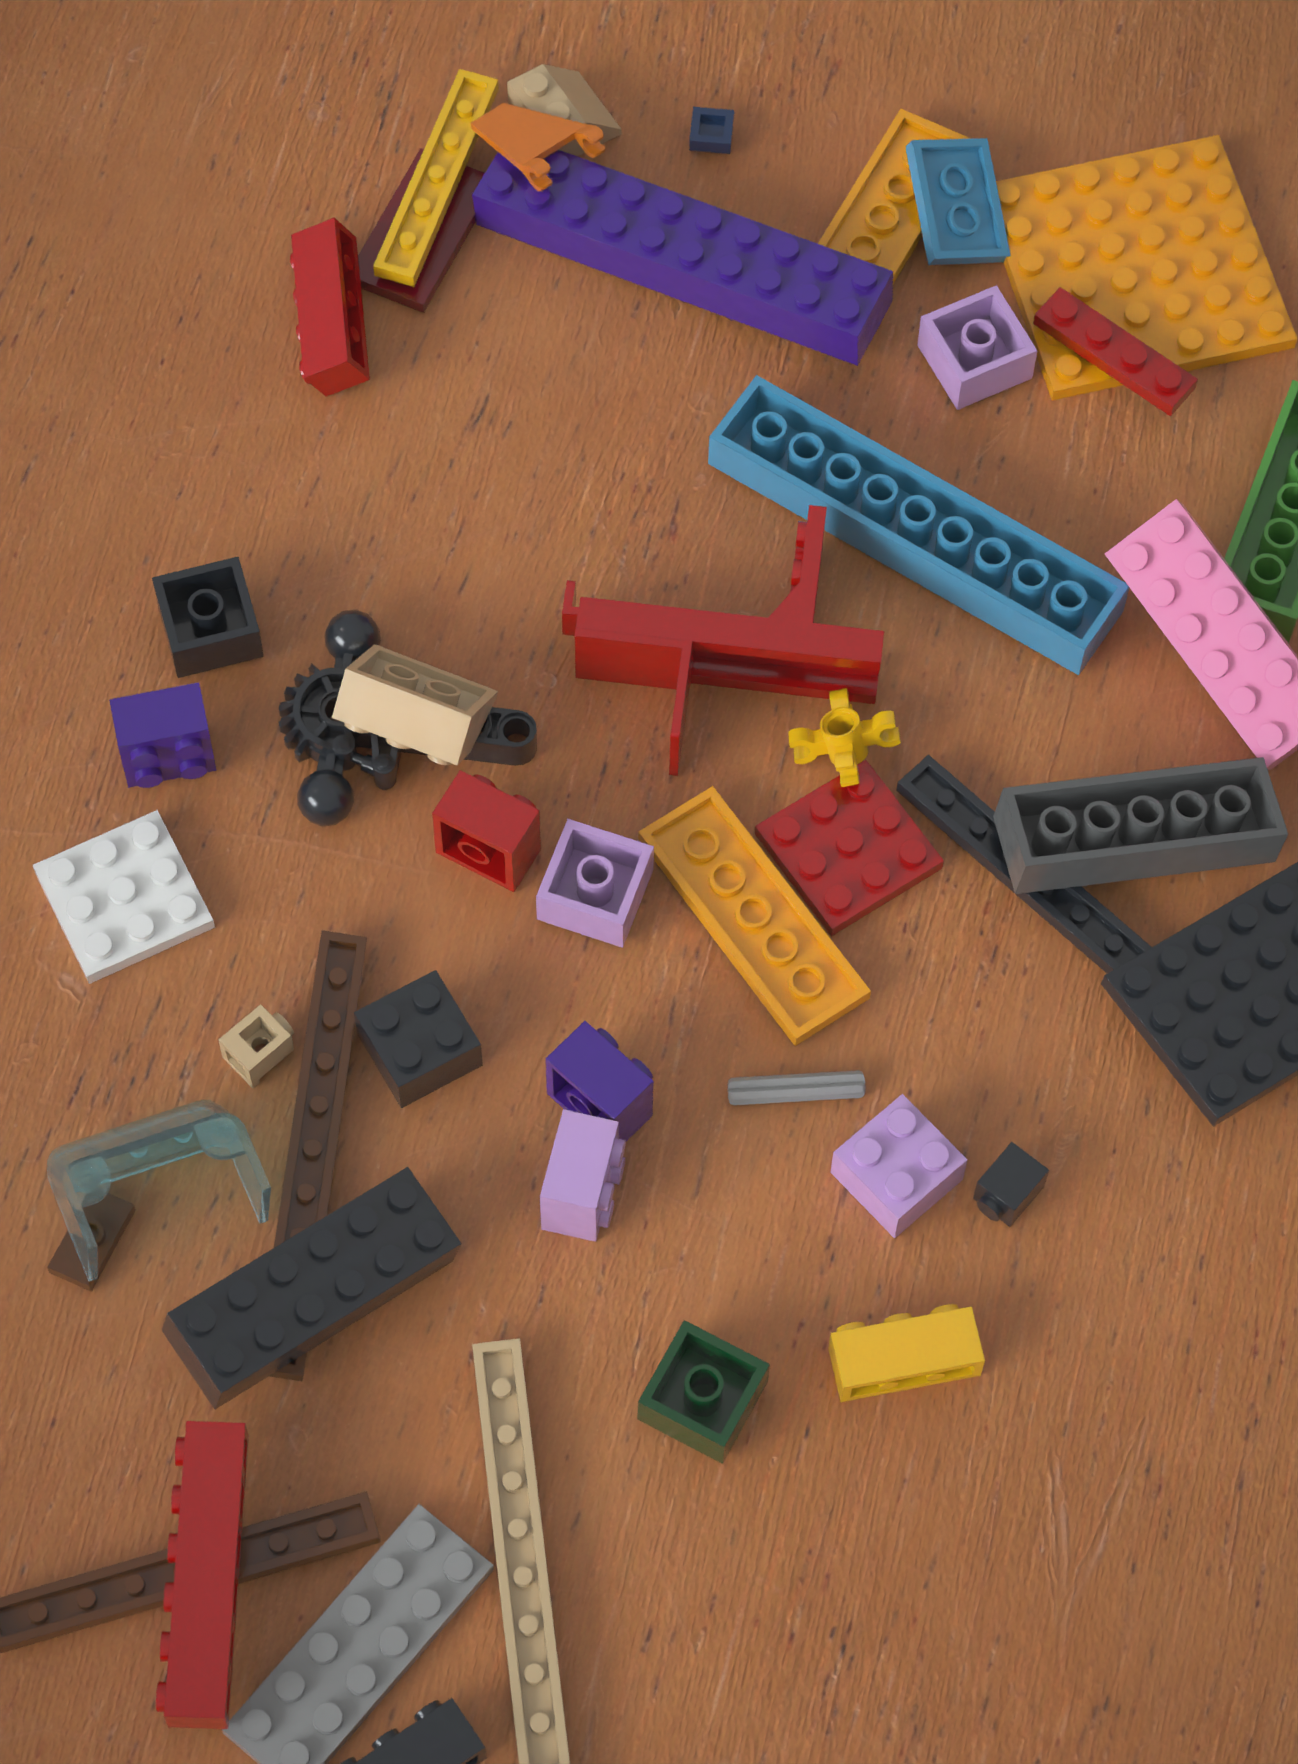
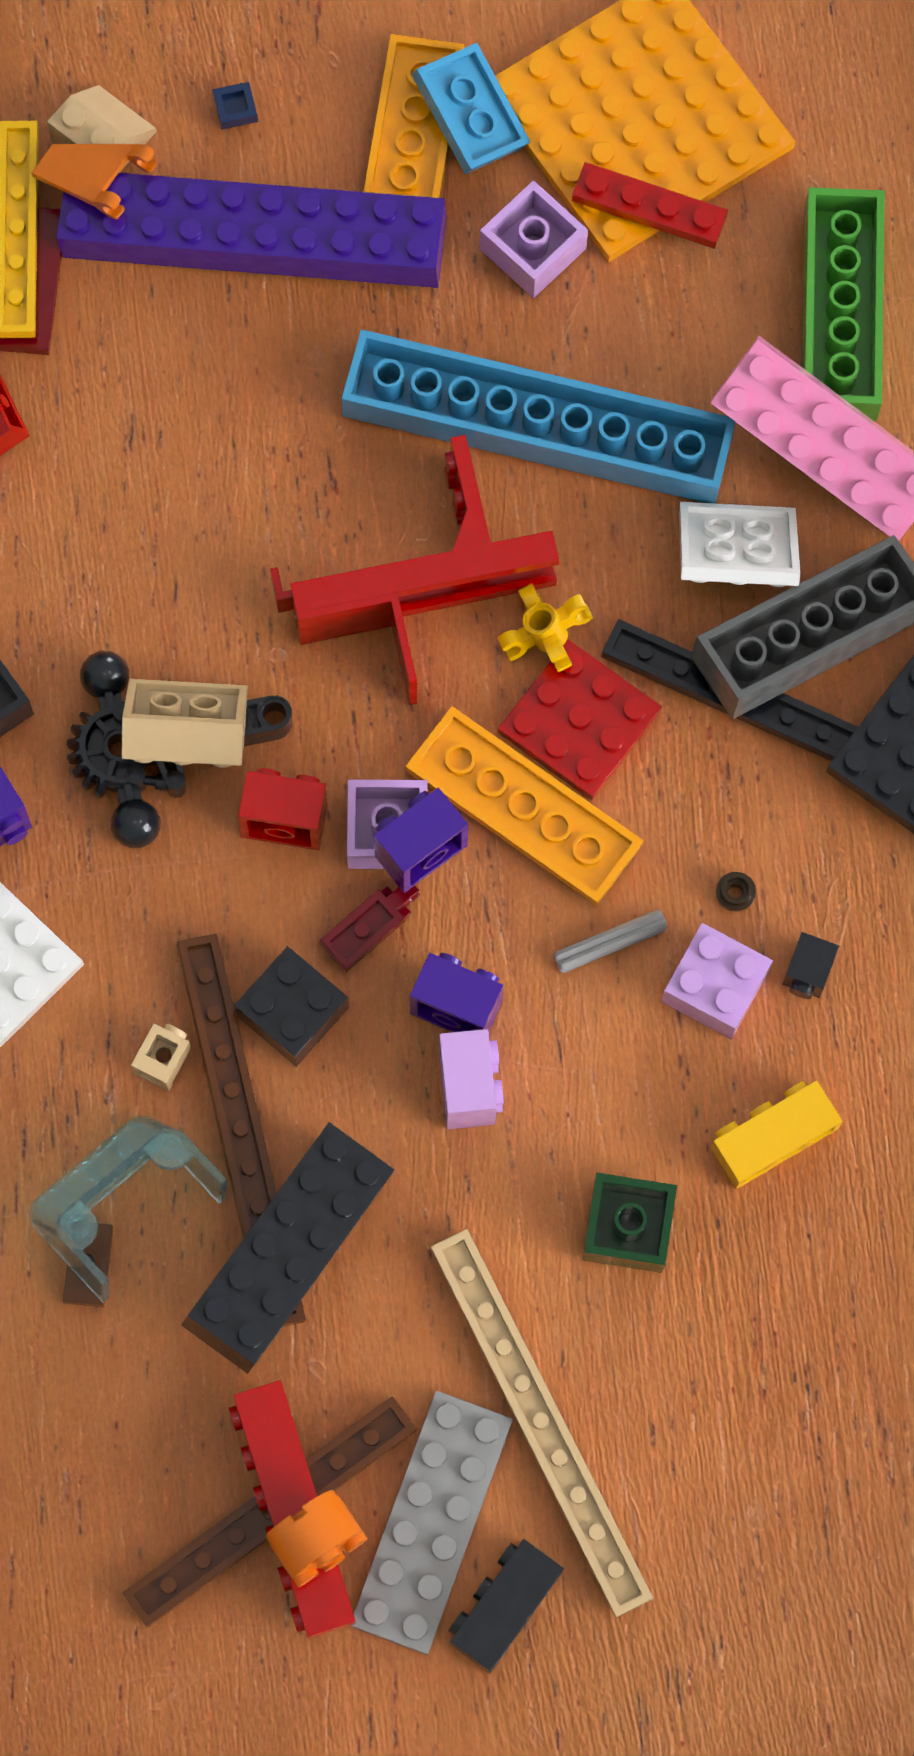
camera: 20 degrees left, 10 degrees up
(211, 1601) = (315, 1537): none -> orange brick
(537, 983) = (368, 926): none -> dark red hinge
(618, 896) = (420, 838): none -> dark purple brick
(955, 1068) = (739, 880): none -> dark brown plate
(1087, 716) = (739, 544): none -> white plate

